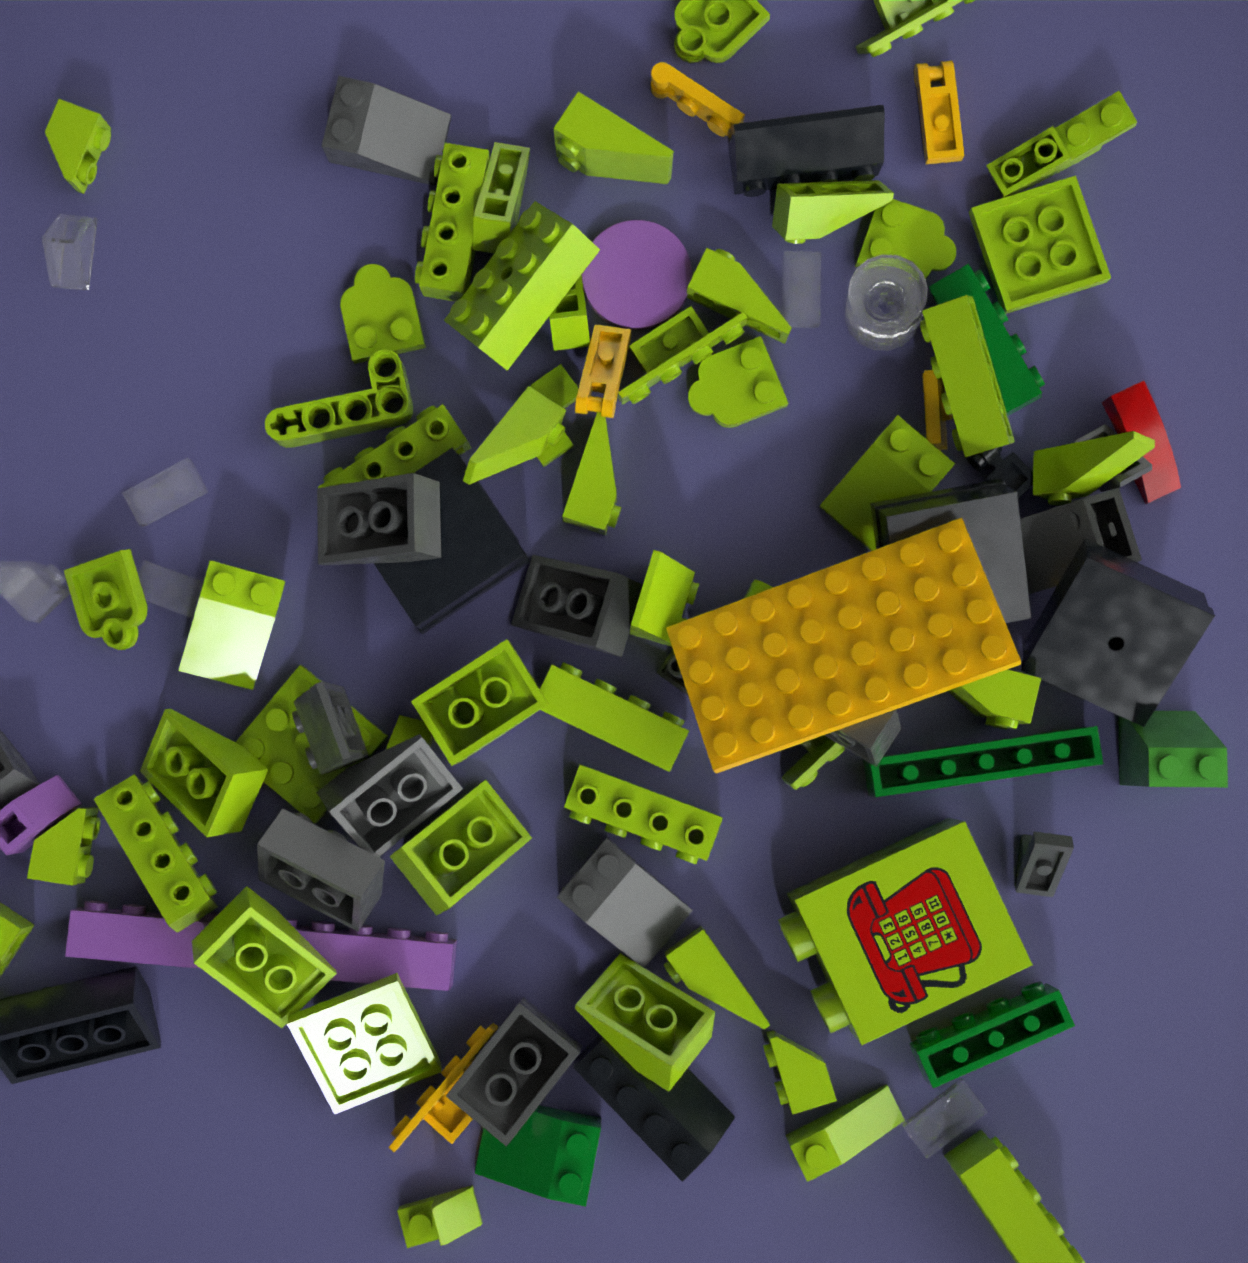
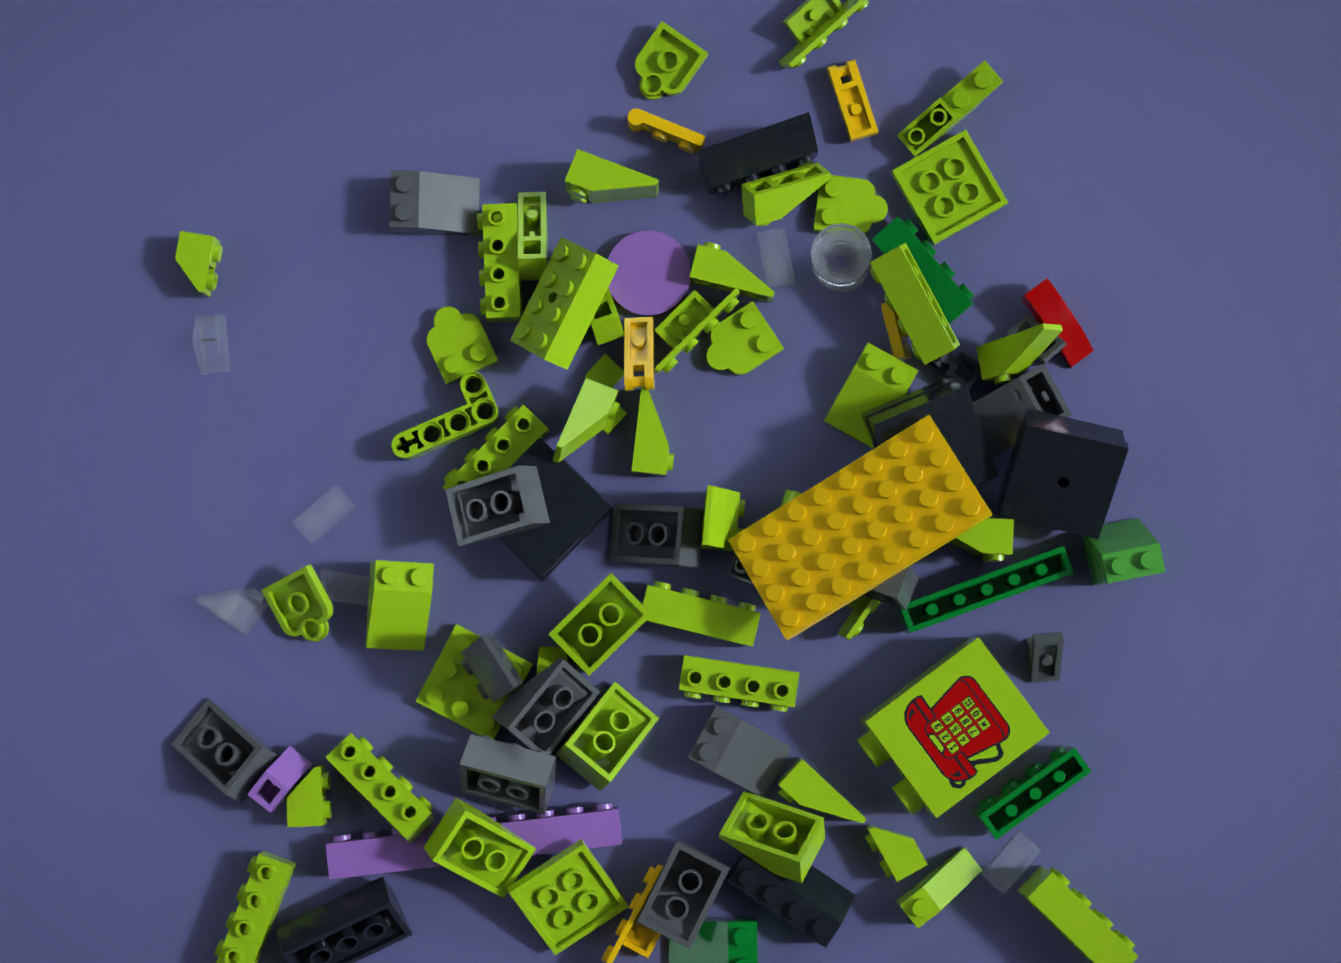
camera: 15 degrees left, 0 degrees up
(203, 774) = (401, 721): lime slope -> none

